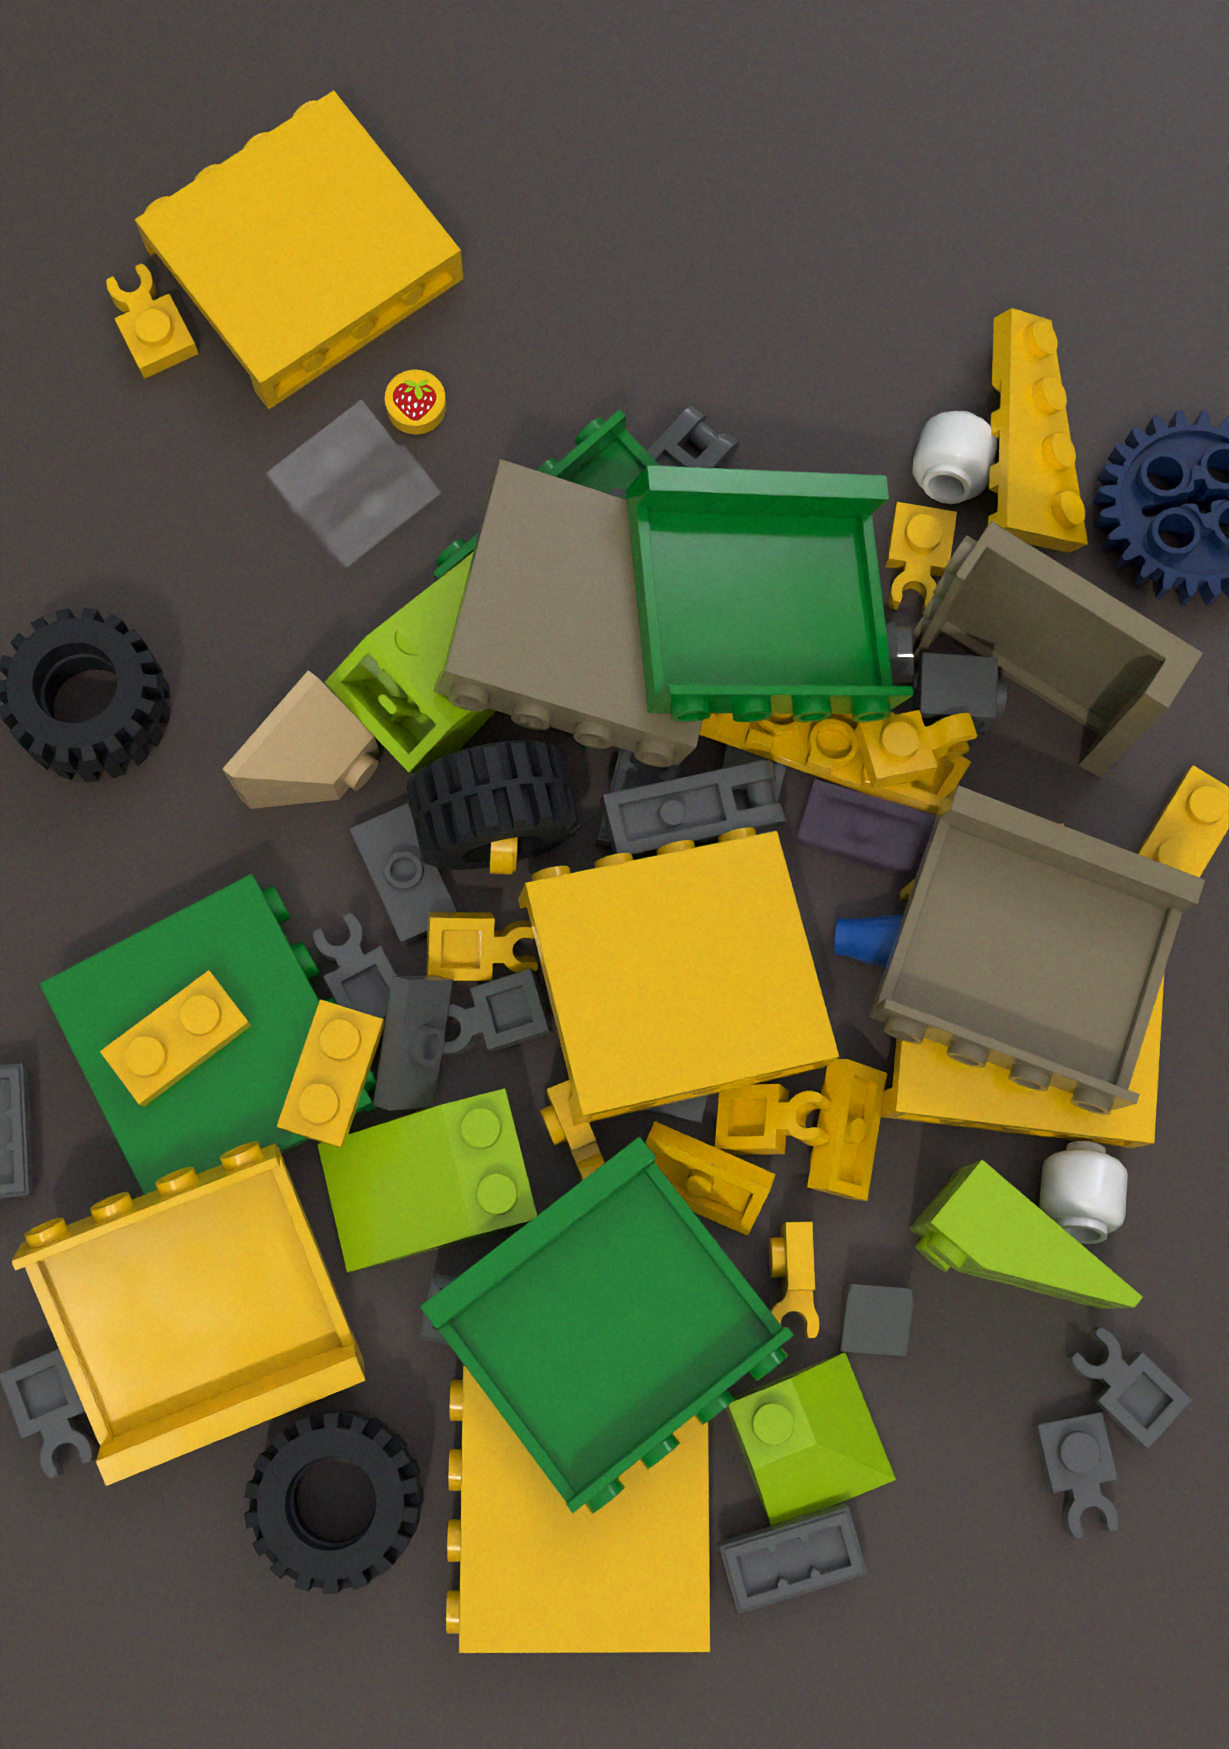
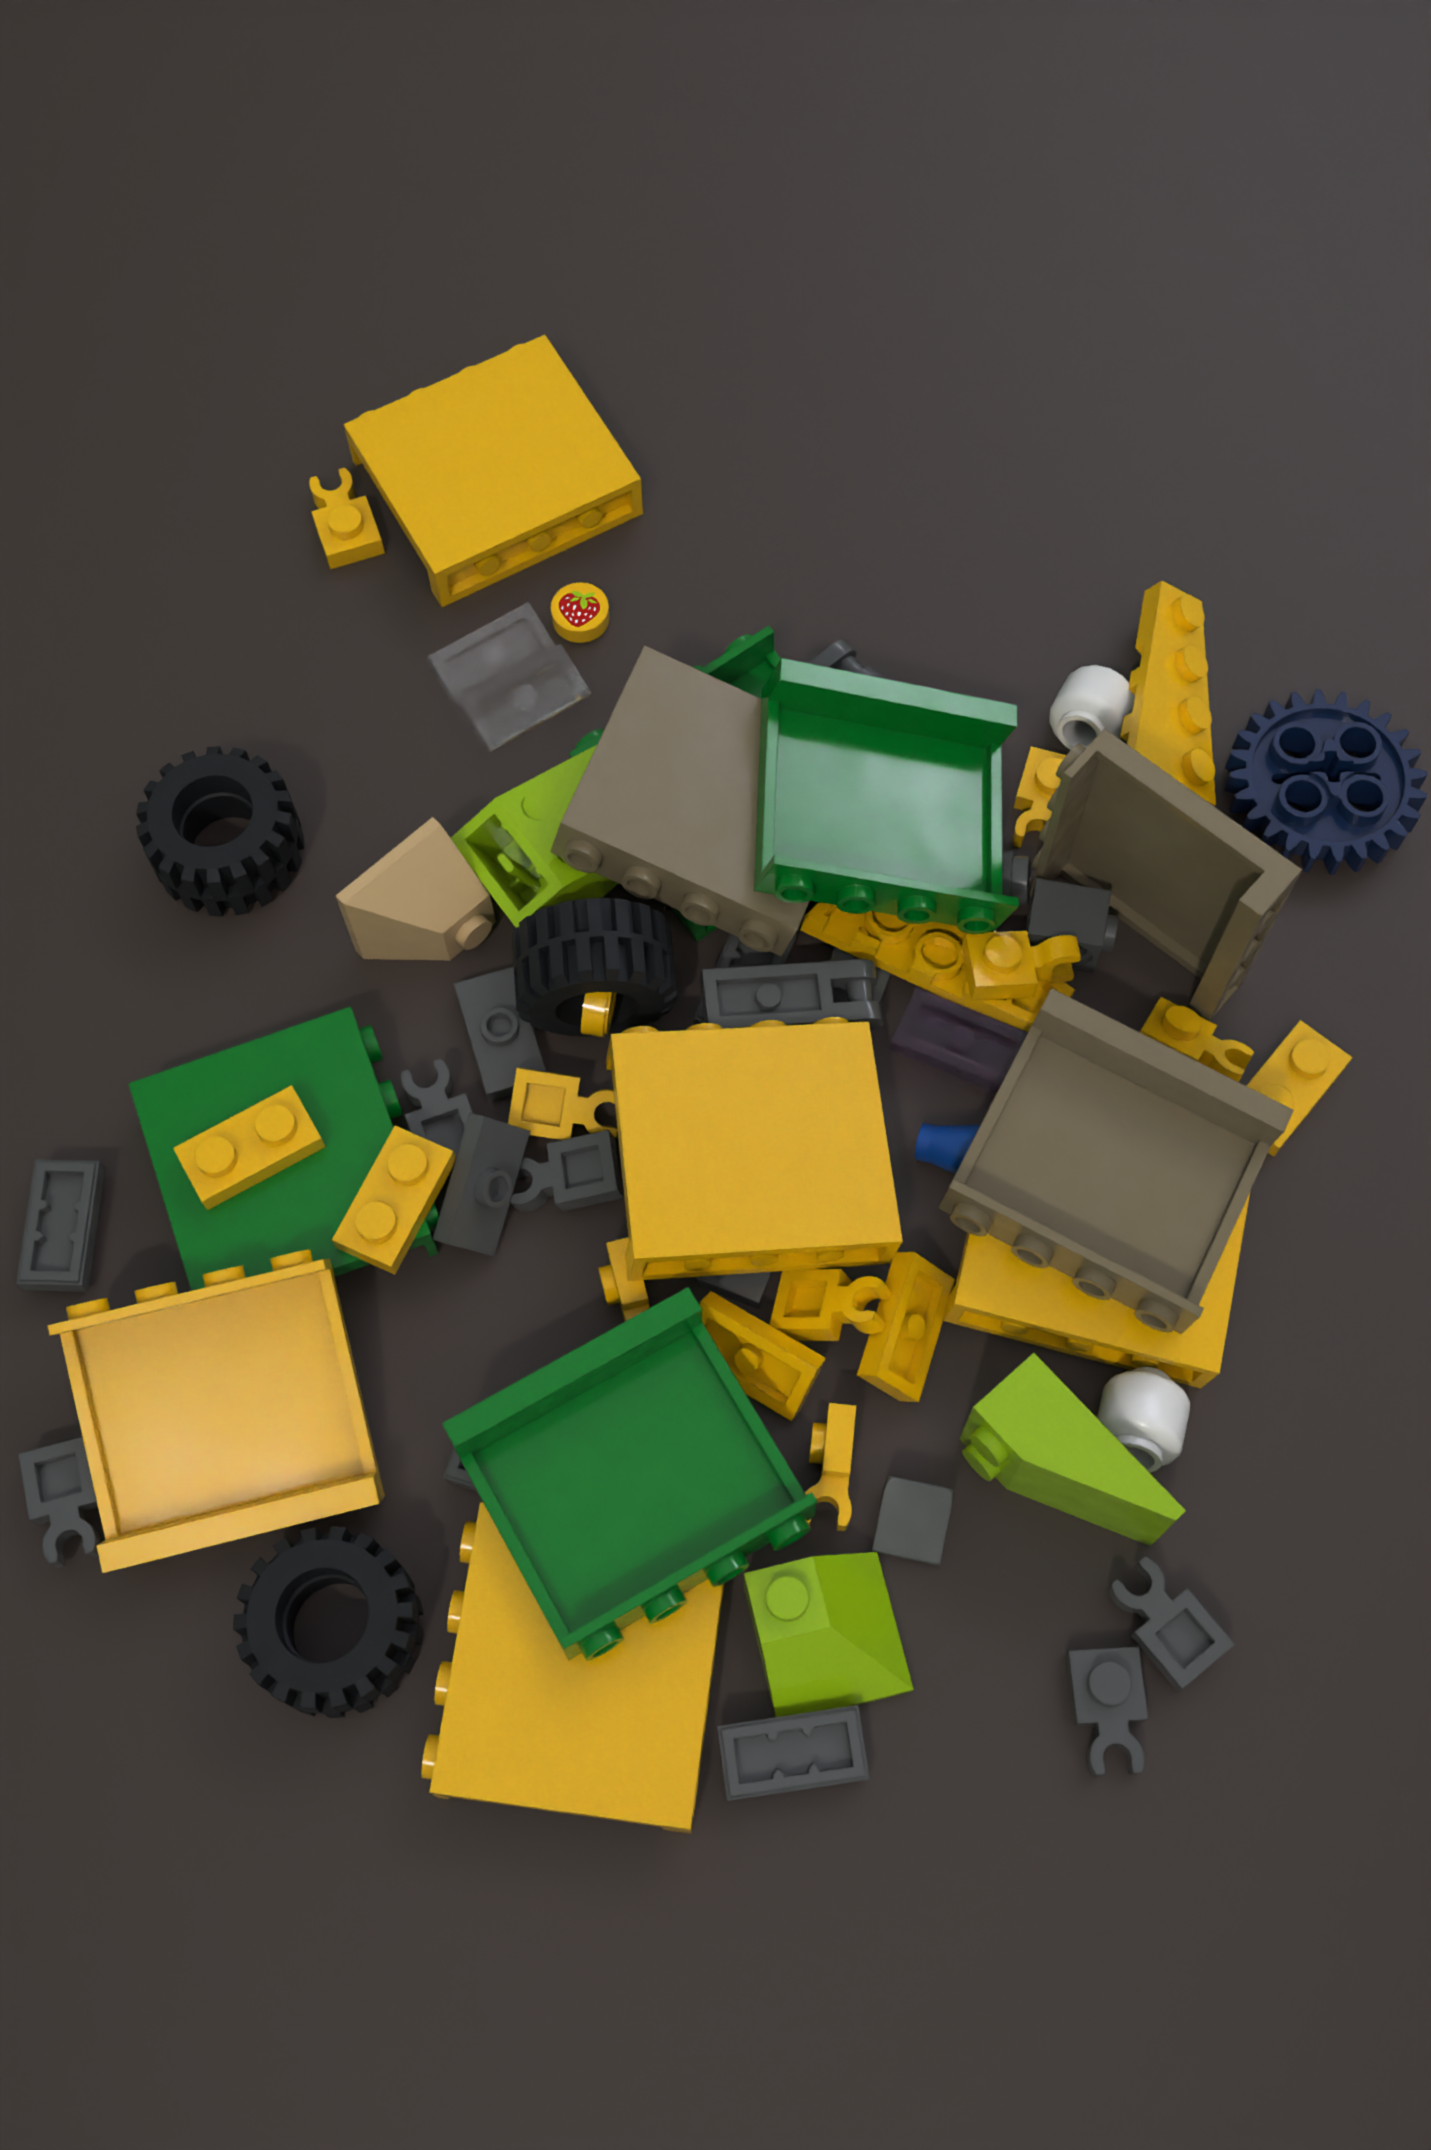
camera: 15 degrees right, 10 degrees down
(428, 1181) = (474, 1321): lime slope -> none
(1084, 803) = (1193, 1036): none -> yellow plate

